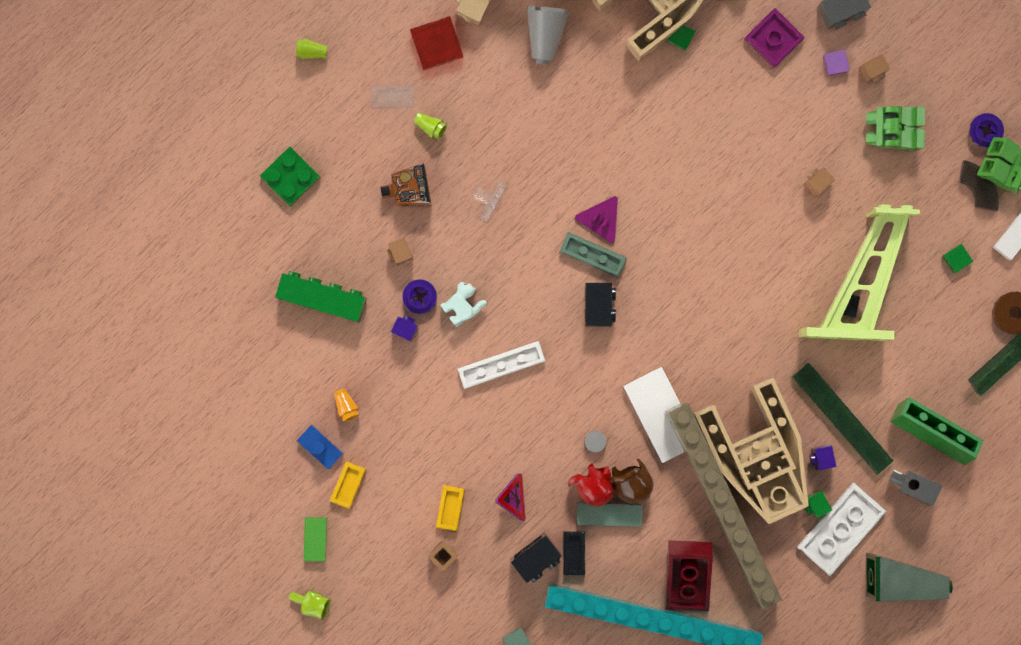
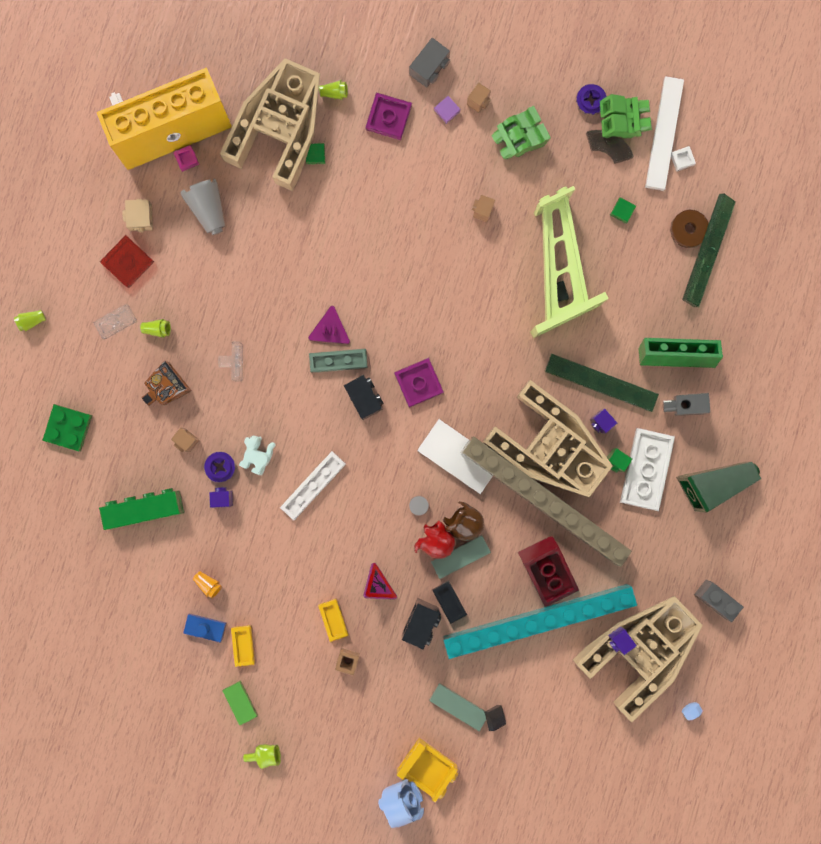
camera: 25 degrees left, 0 degrees up
(661, 319) = (418, 382): none -> magenta tile

